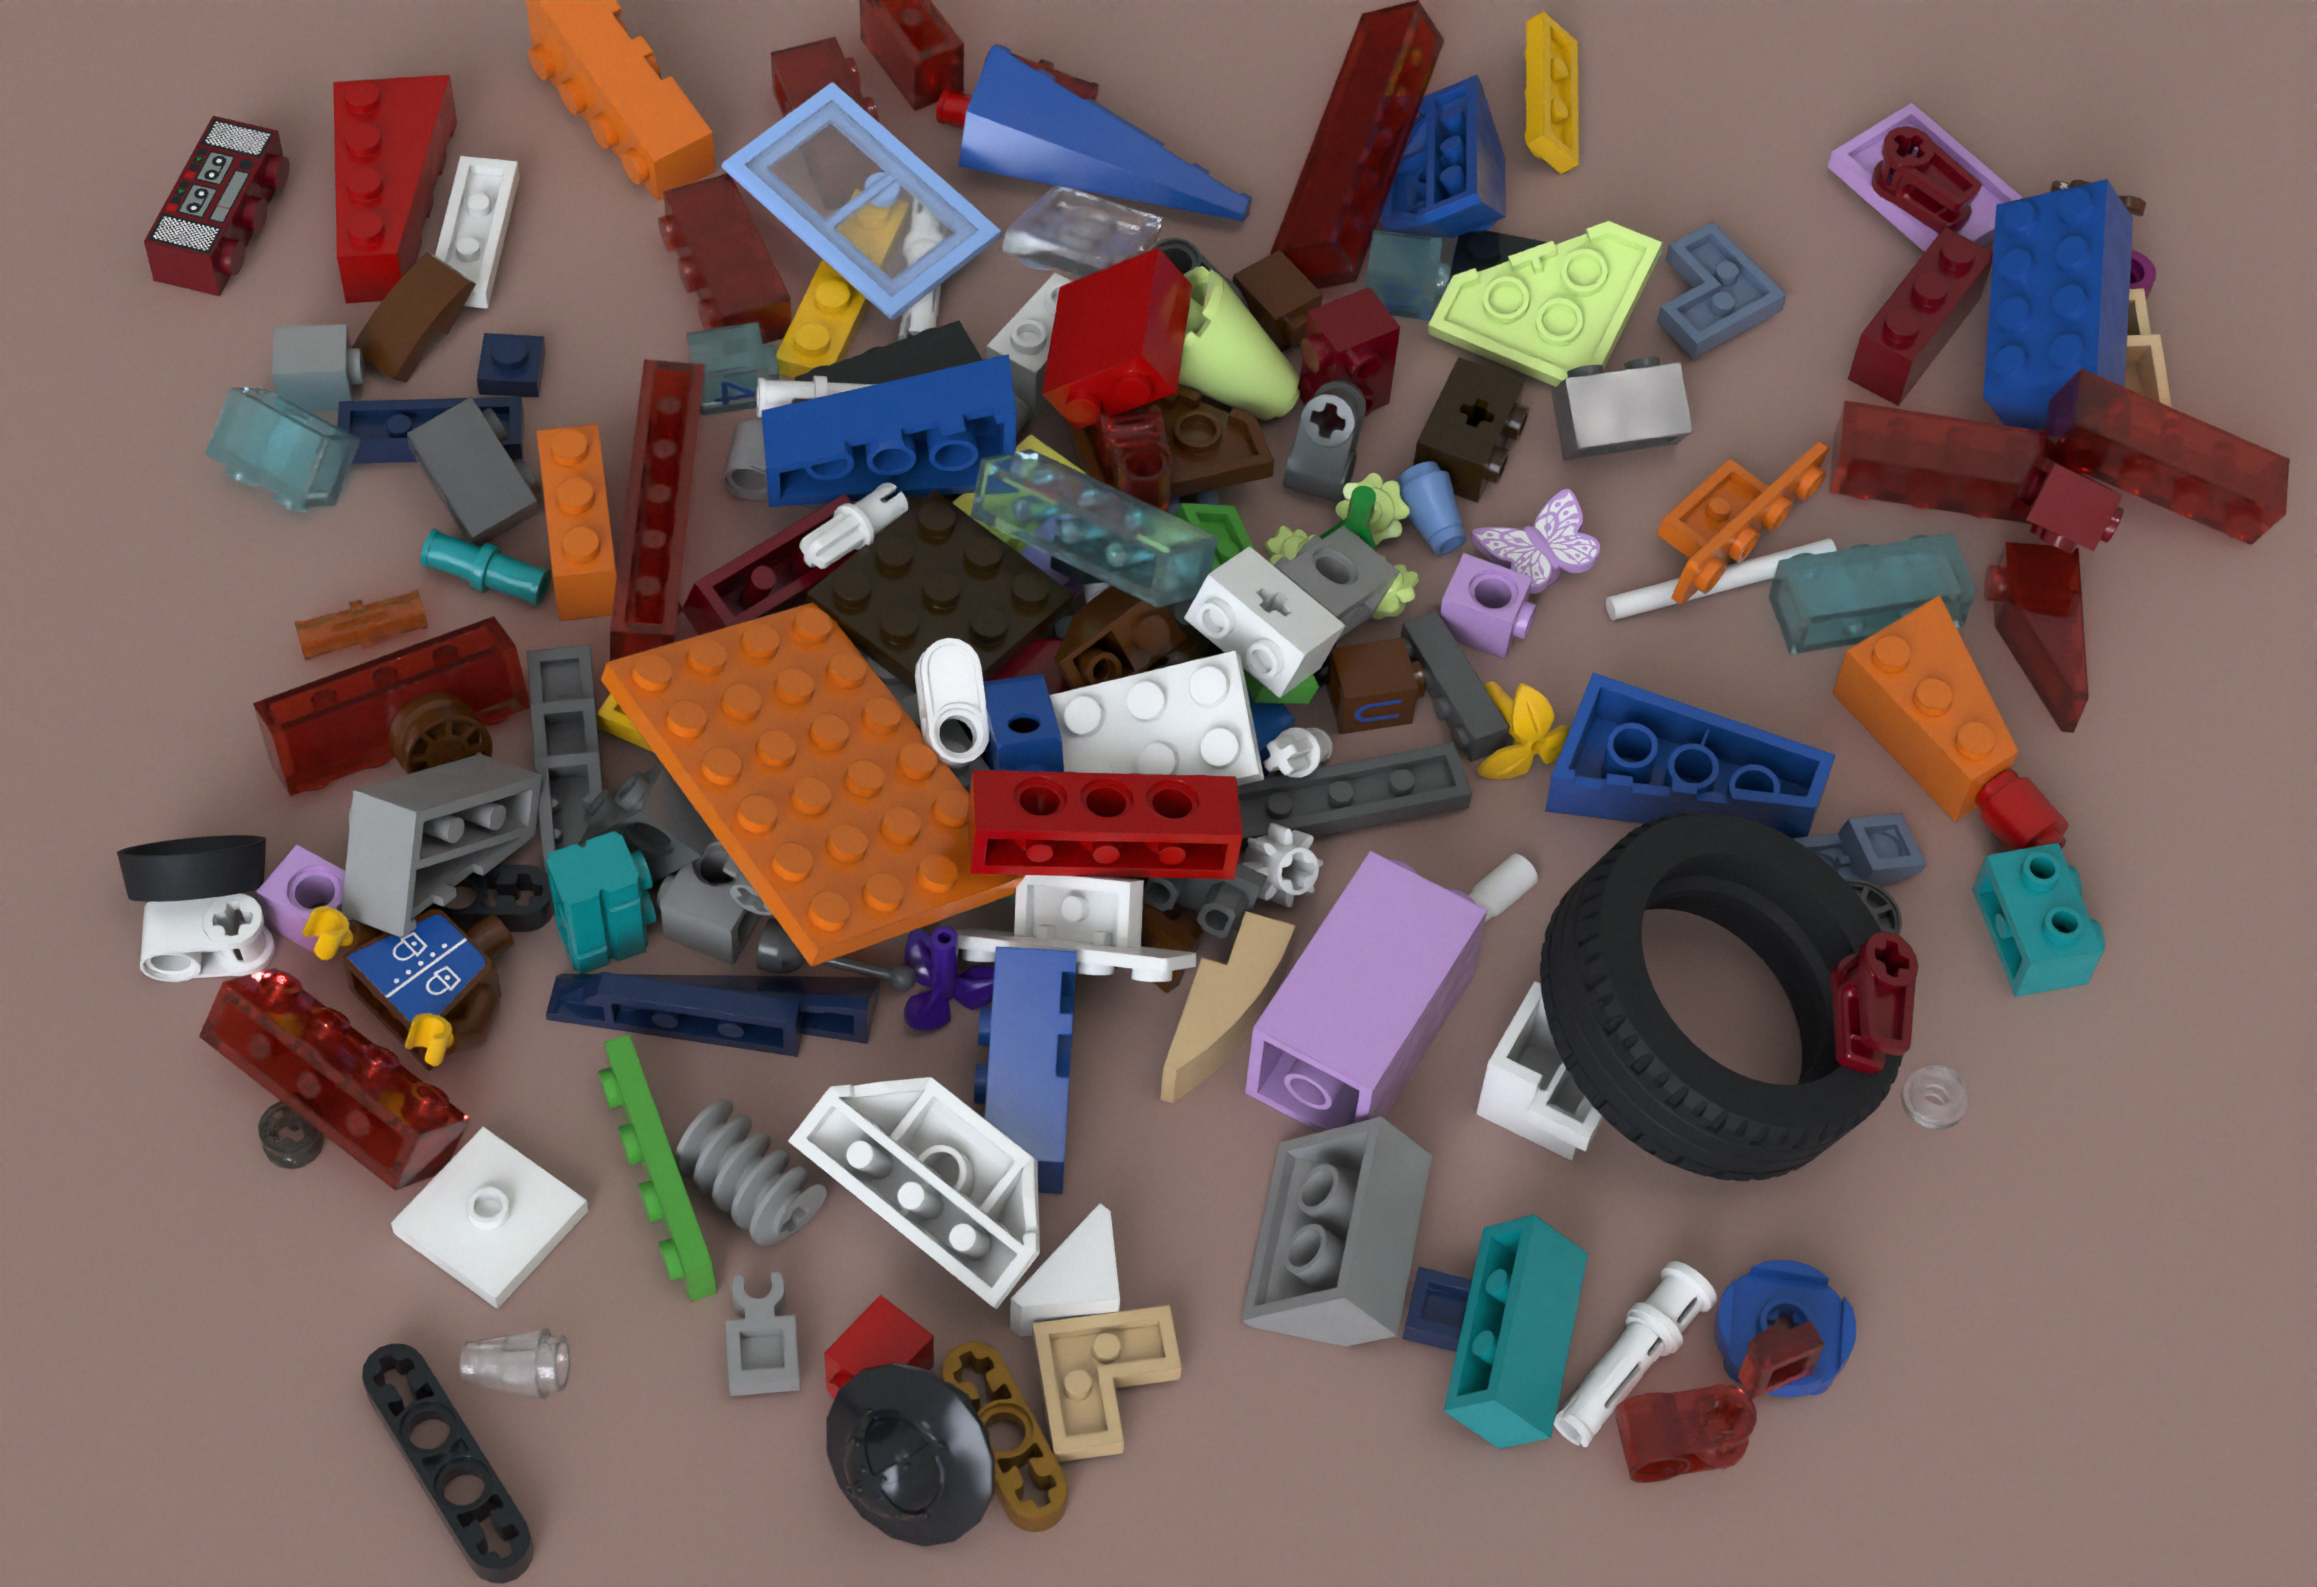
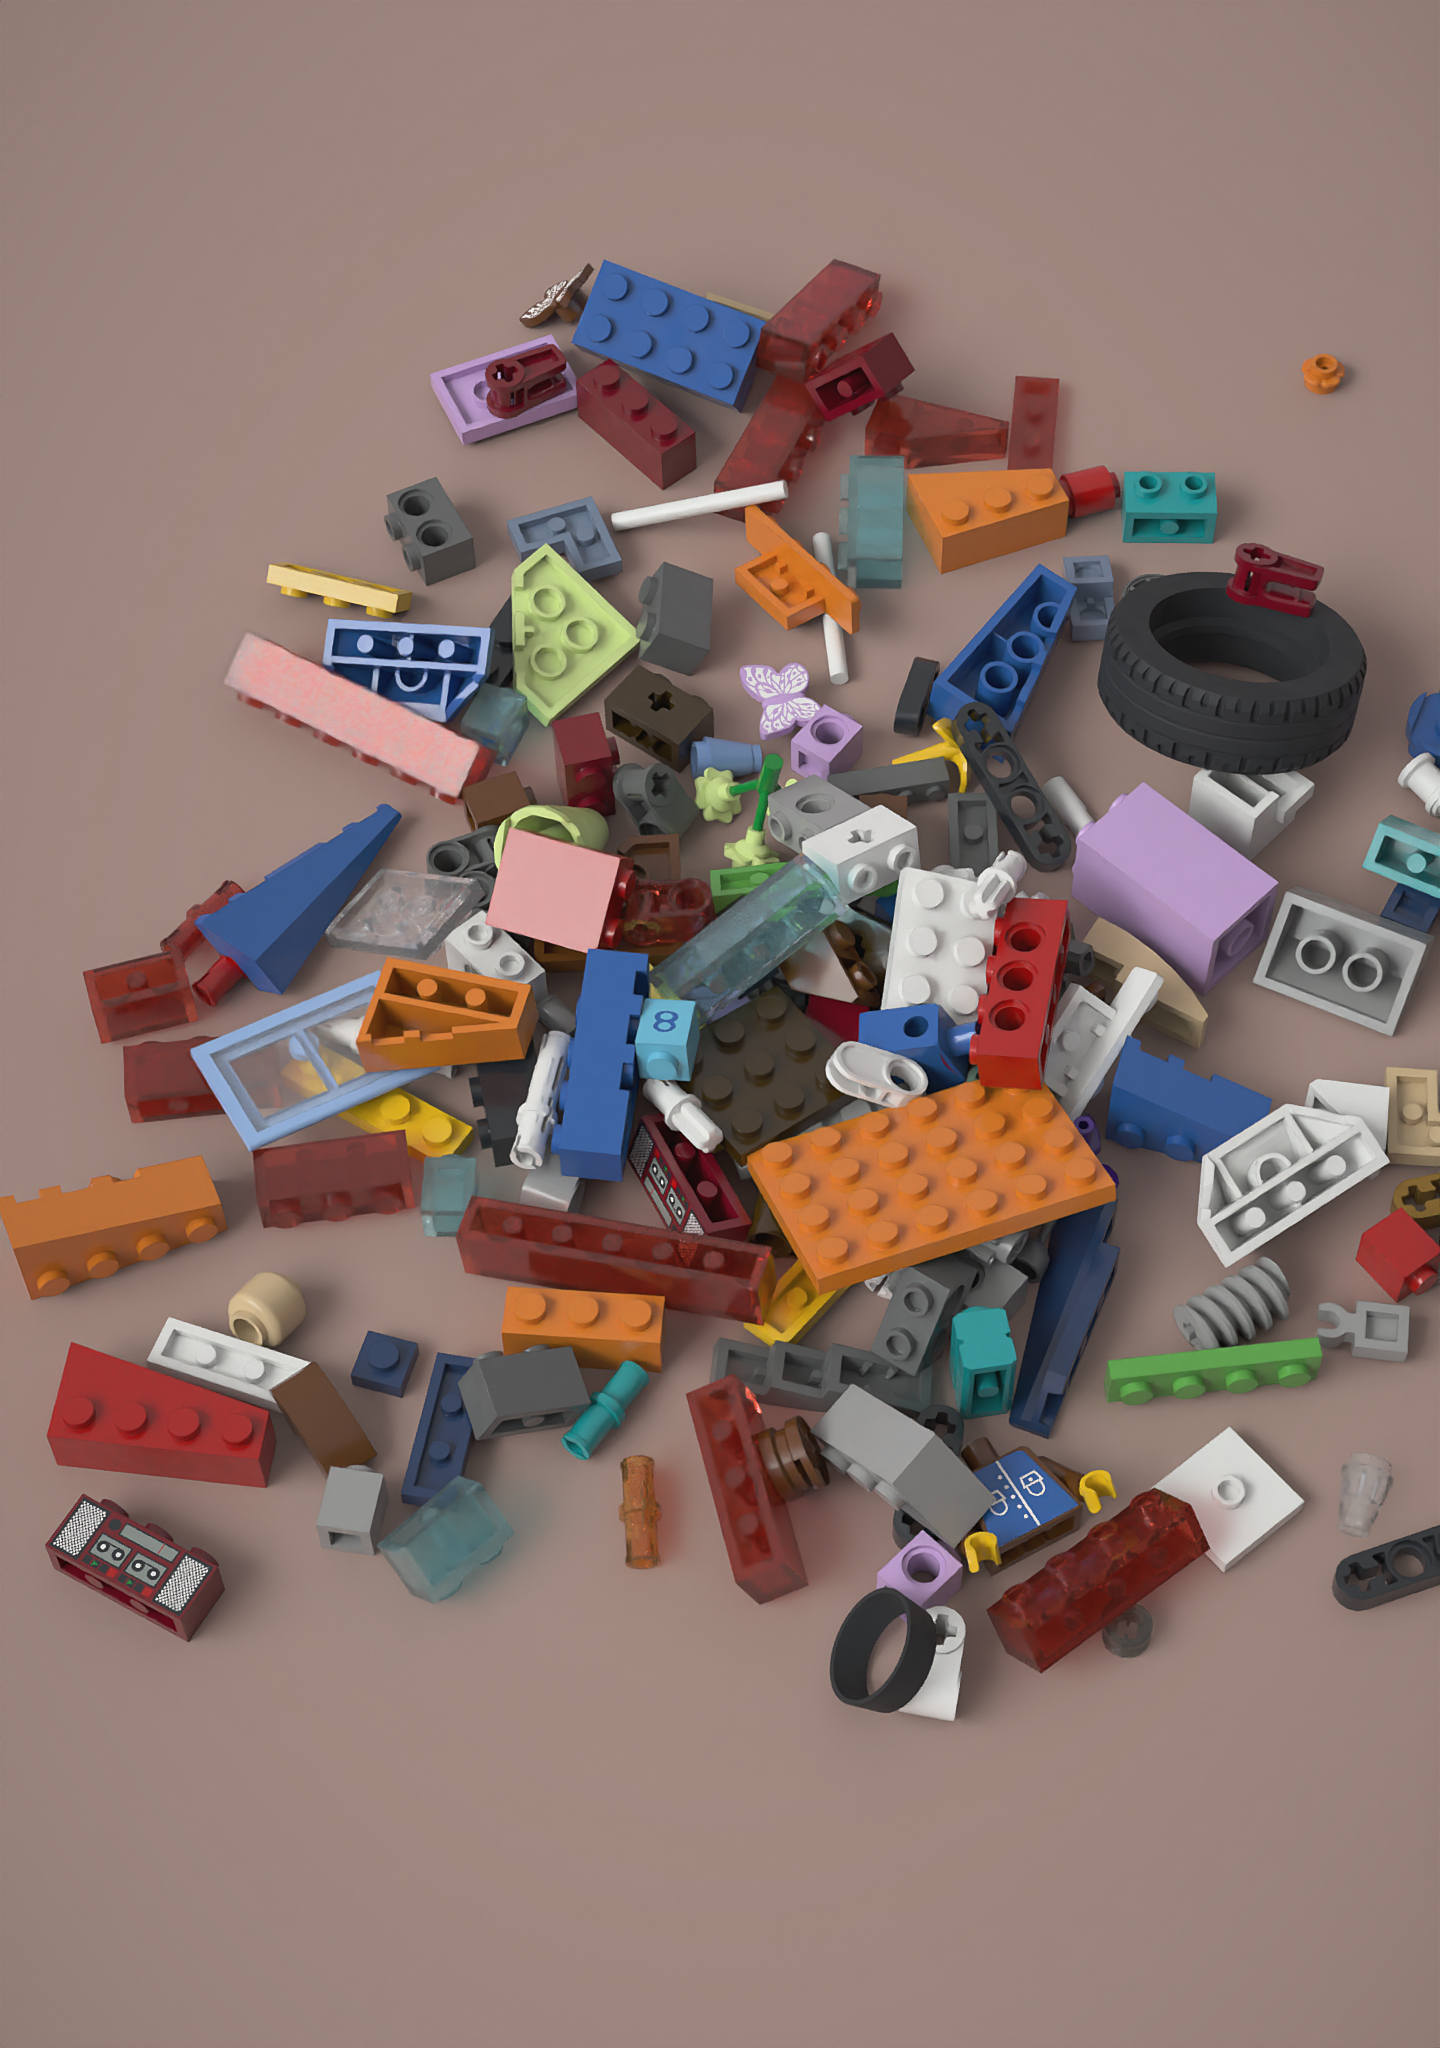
camera: 70 degrees left, 0 degrees up
(545, 241) = (267, 1310): none -> tan head
(919, 273) = (444, 1018): none -> orange wedge
(929, 476) = (667, 1039): none -> medium azure brick
(1237, 752) = (998, 884): none -> white axle
(1482, 804) = (1018, 783): none -> black beam
(1568, 678) = (915, 697): none -> black beam
(1669, 156) = (429, 531): none -> dark grey brick
(1810, 401) = (700, 505): none -> white bar
(2117, 751) = (1033, 423): none -> clear red tile

